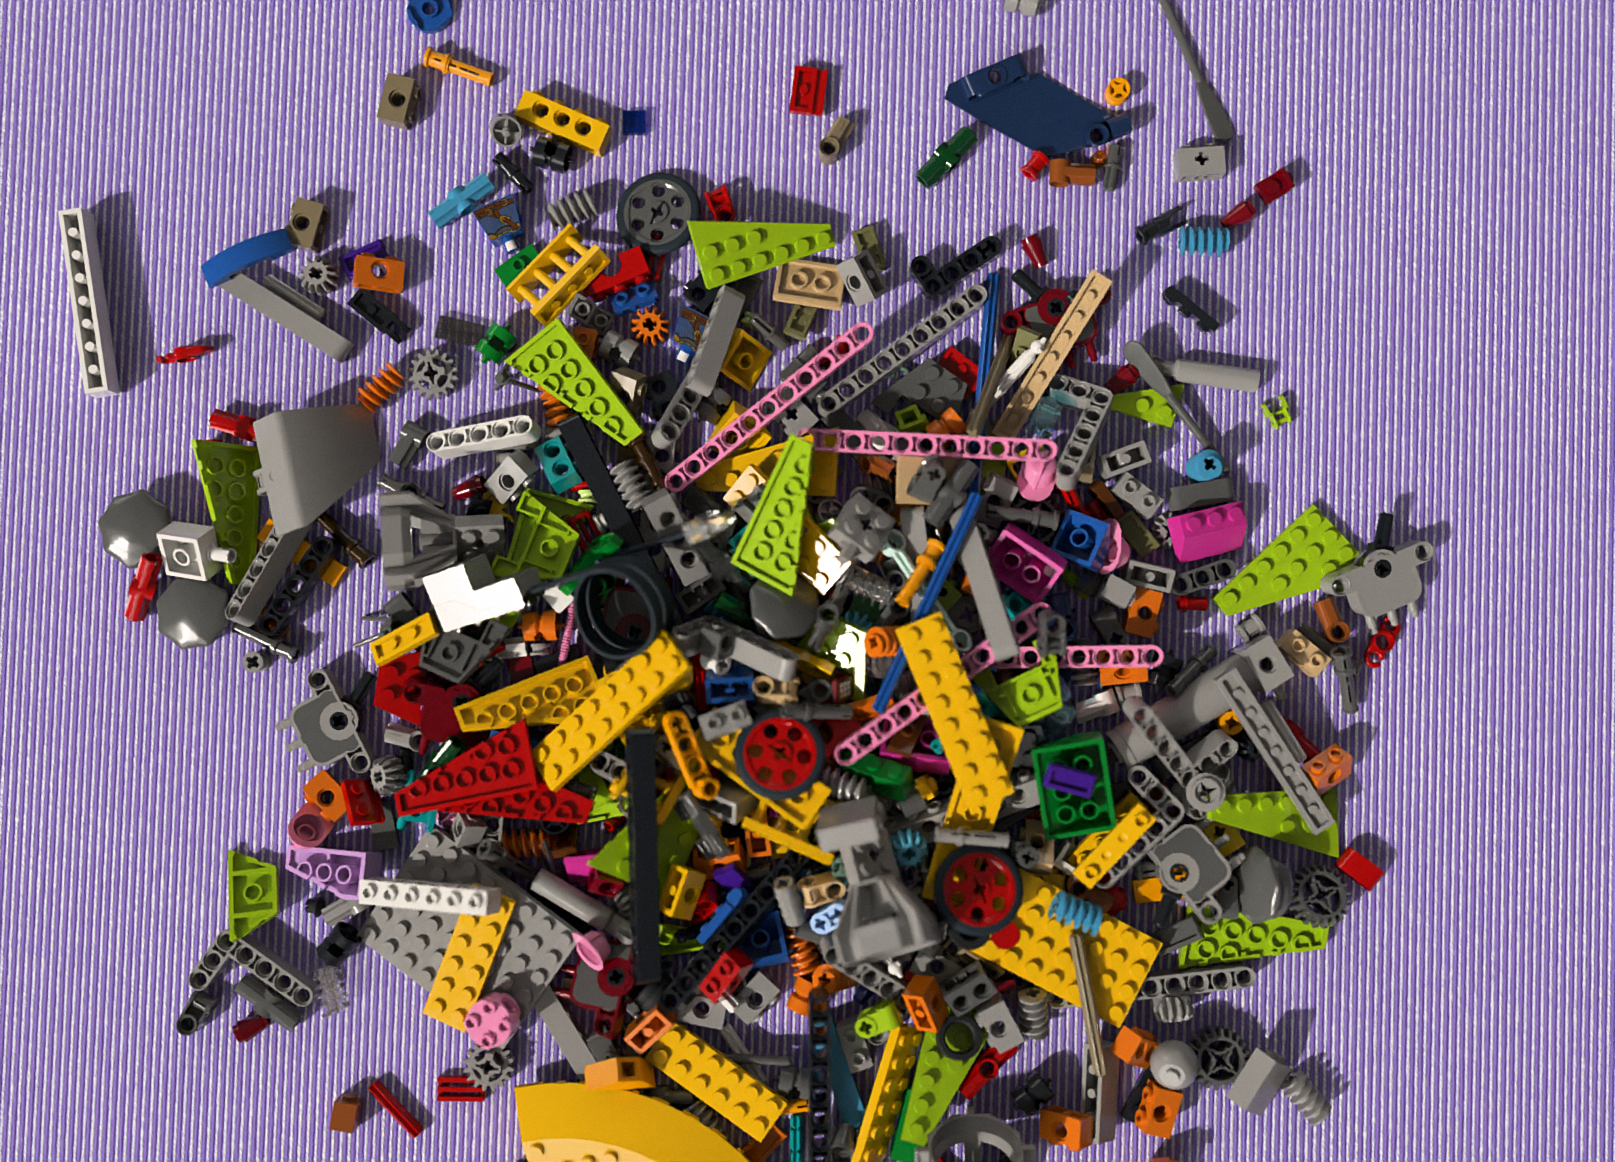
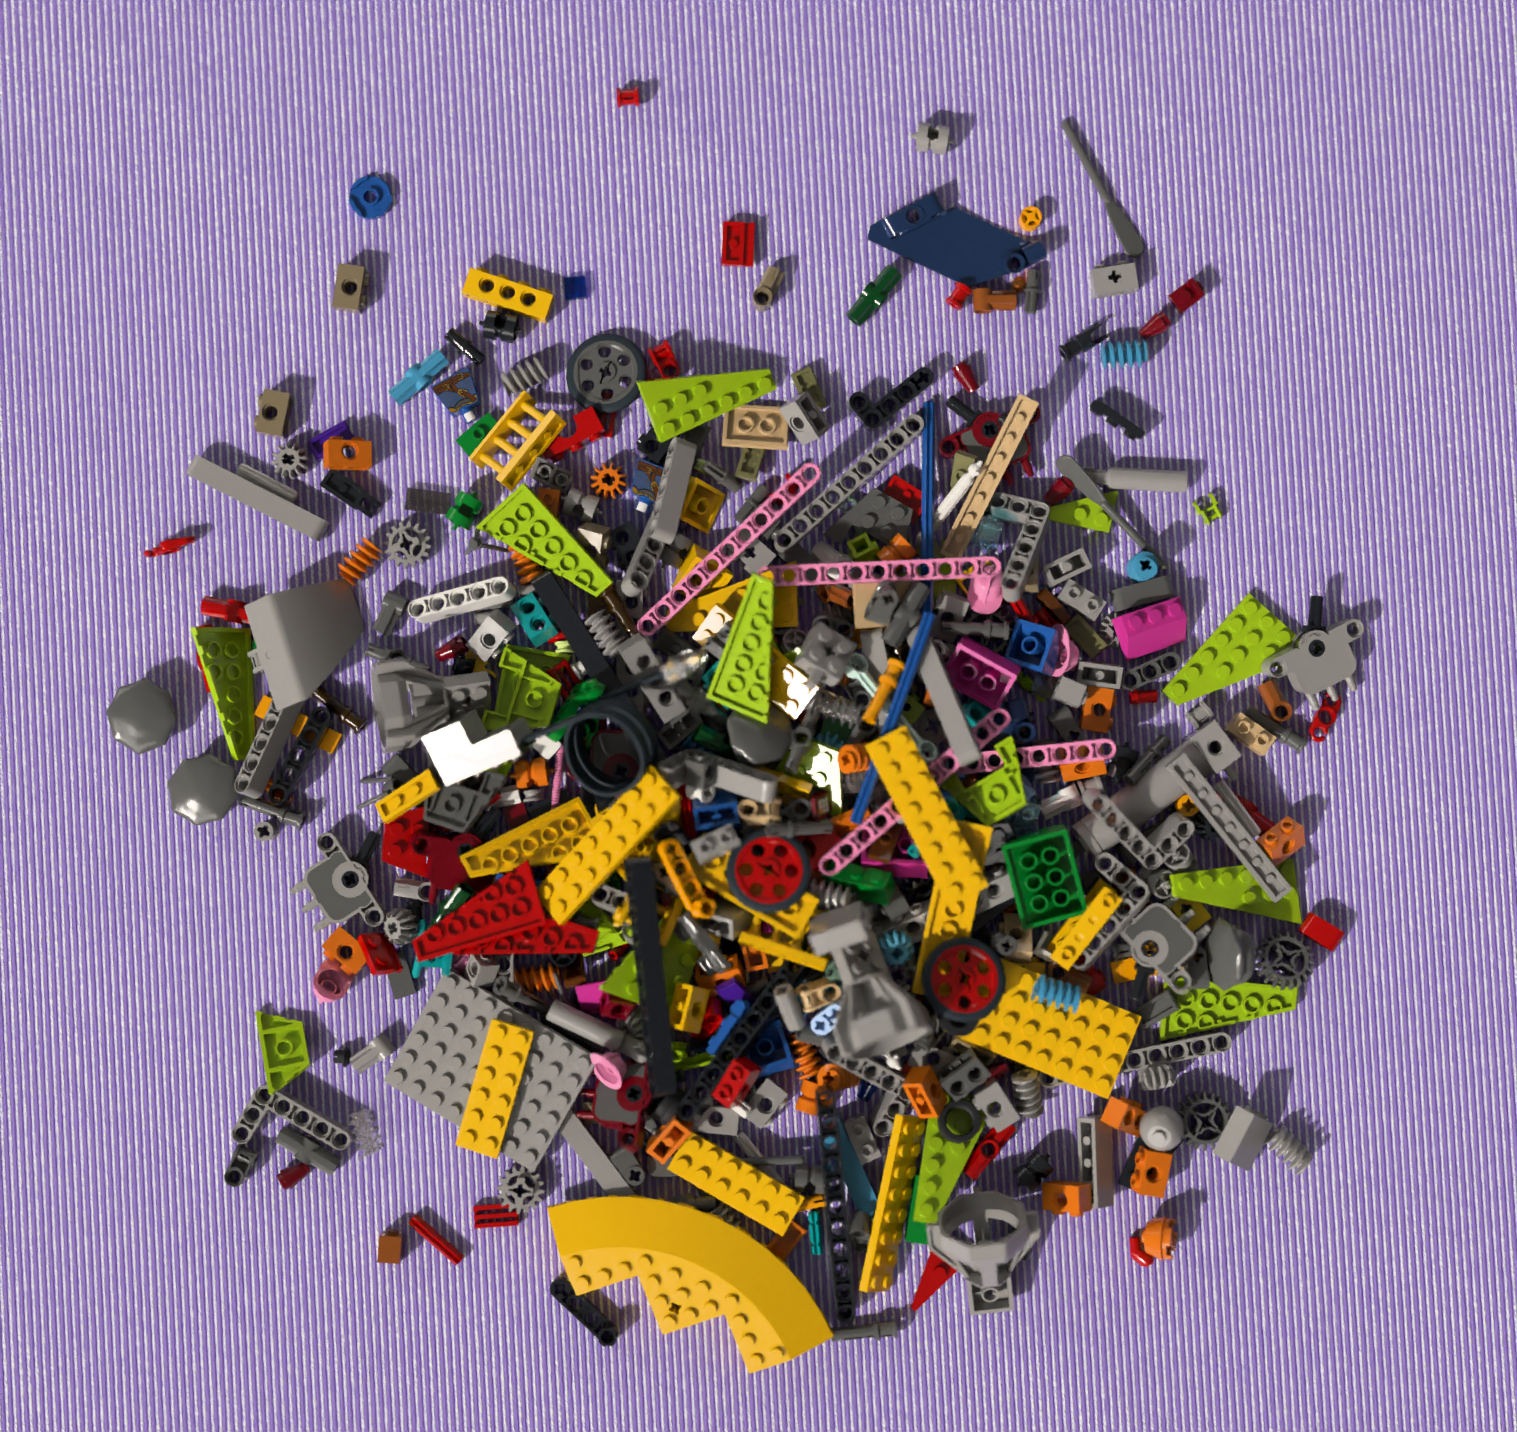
camera: 10 degrees left, 0 degrees up
(89, 303) = (75, 506): white brick -> none
(143, 587) = (153, 770): red piece -> none
(192, 551) = (198, 732): white brick -> none
(246, 254) = (221, 449): blue slope -> none
(334, 868) = (364, 1020): lavender wedge -> none
(339, 944) = (368, 1091): black wheel -> none
(430, 895) = (454, 1032): white brick -> none
(447, 63) = (429, 257): light orange pin -> none
(493, 1019) = (523, 1143): bright pink brick -> none
(505, 129) = (454, 307): light grey wheel -> none
(620, 1074) = (646, 1184): light orange slope -> none
(642, 295) = (595, 452): blue hinge -> none
(882, 1018) = (885, 1108): lime piece -> none
(927, 787) = (908, 890): yellow plate -> none
(972, 837) = (953, 931): light grey pin -> none
(990, 386) = (934, 510): dark tan axle -> none
(1007, 937) = (994, 1022): red sticker -> none
(1053, 638) = (1009, 741): dark grey piece -> none
(1069, 779) = (1039, 870): dark purple tile -> none
(1088, 1004) = (1076, 1078): dark tan axle -> none
(1216, 795) = (1164, 881): light grey gear -> none
(1344, 670) = (1290, 747): dark grey pin -> none

